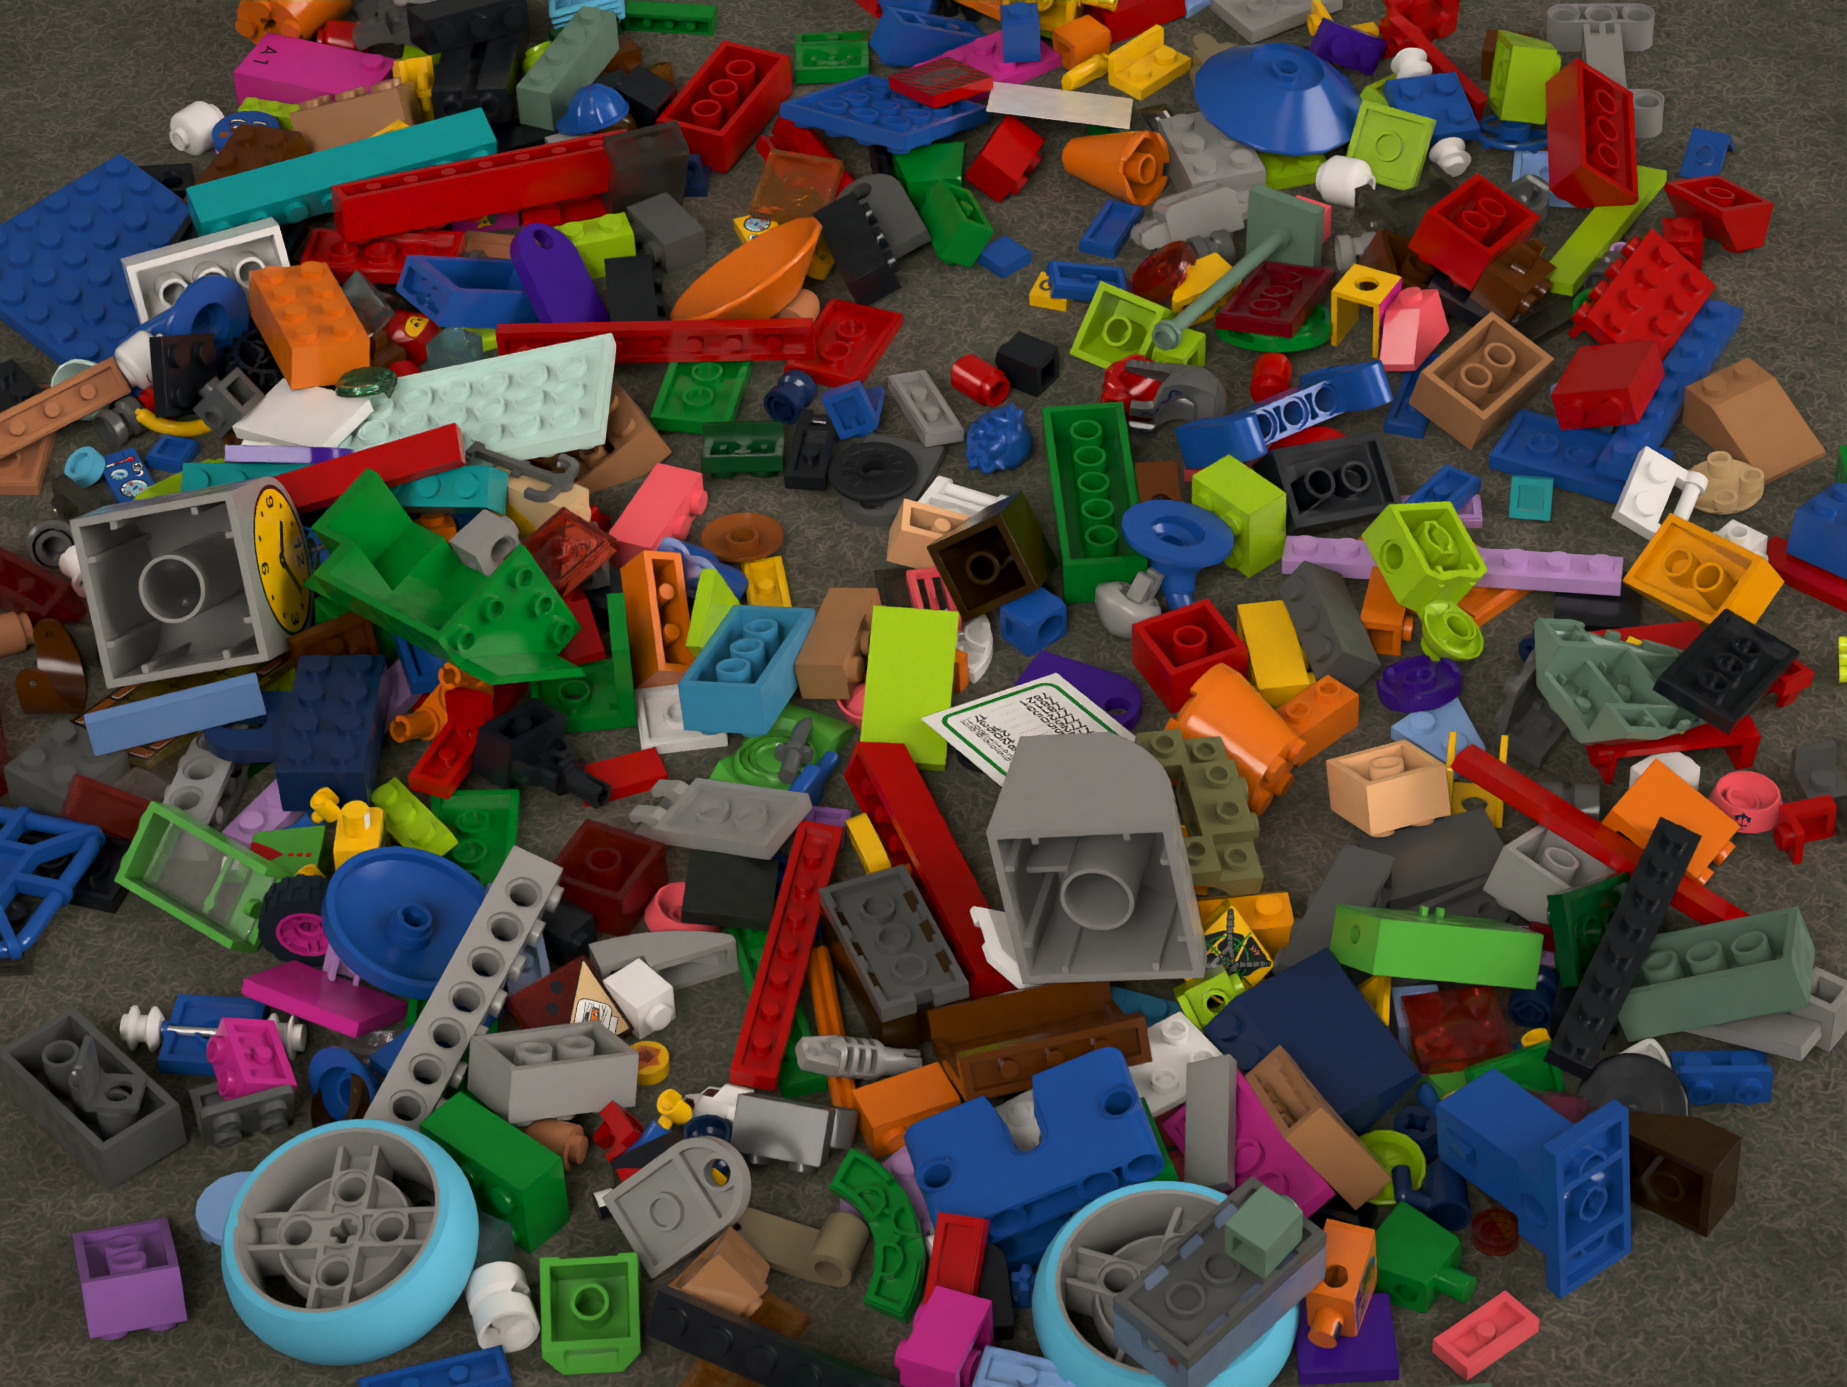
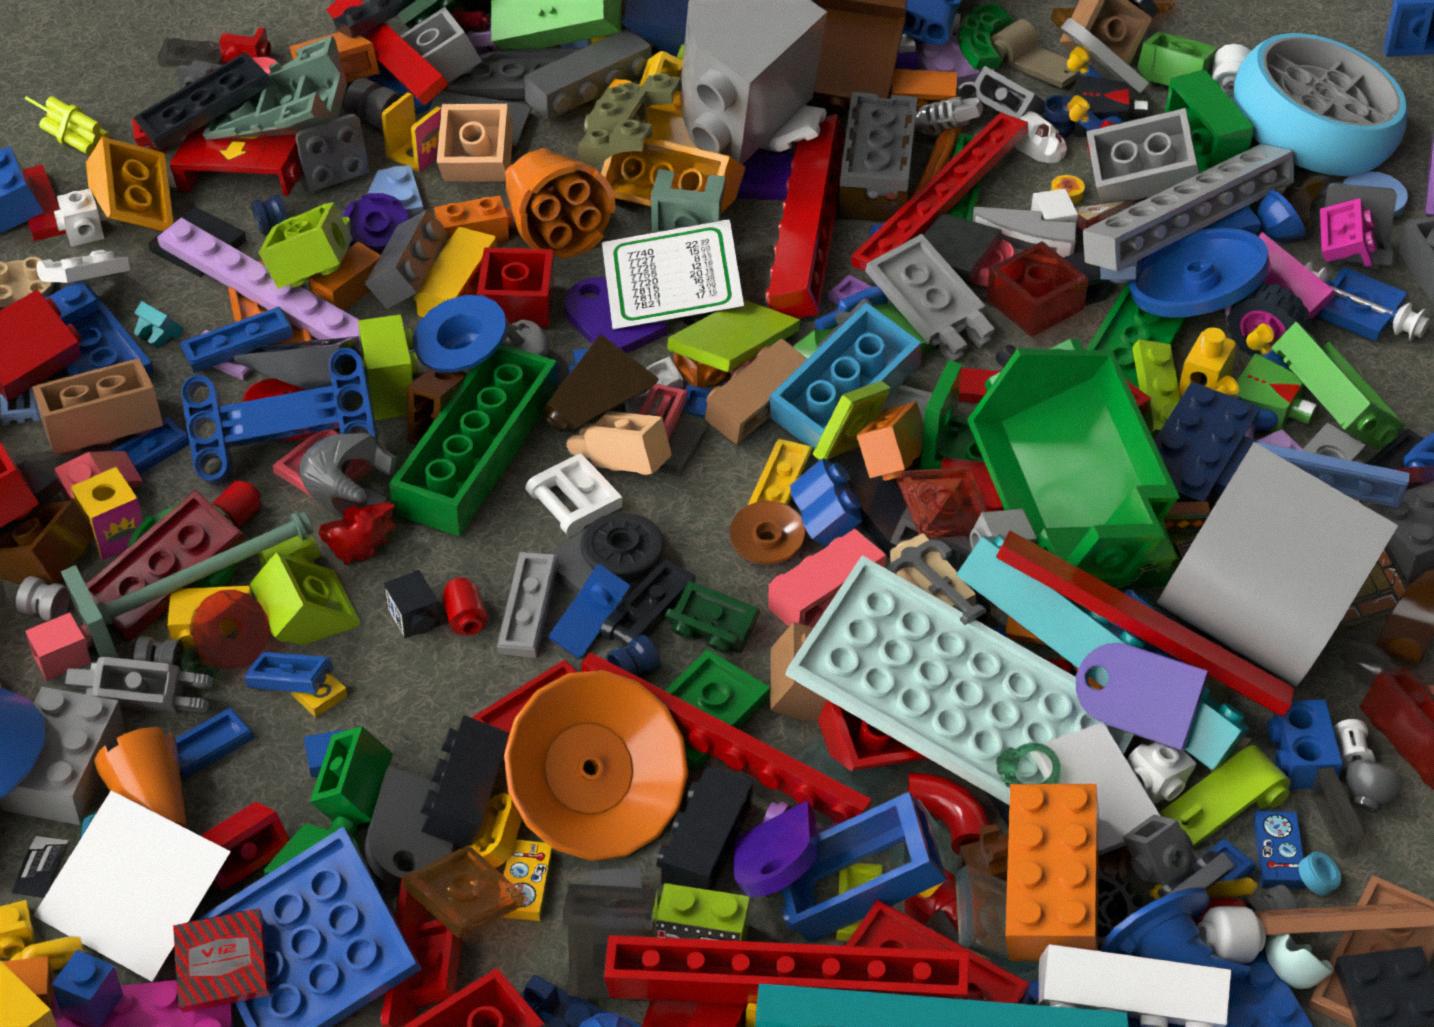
camera: 155 degrees left, 5 degrees up
(866, 844) = (837, 255): yellow beam -> none
(999, 440) = (497, 539): blue hair -> none

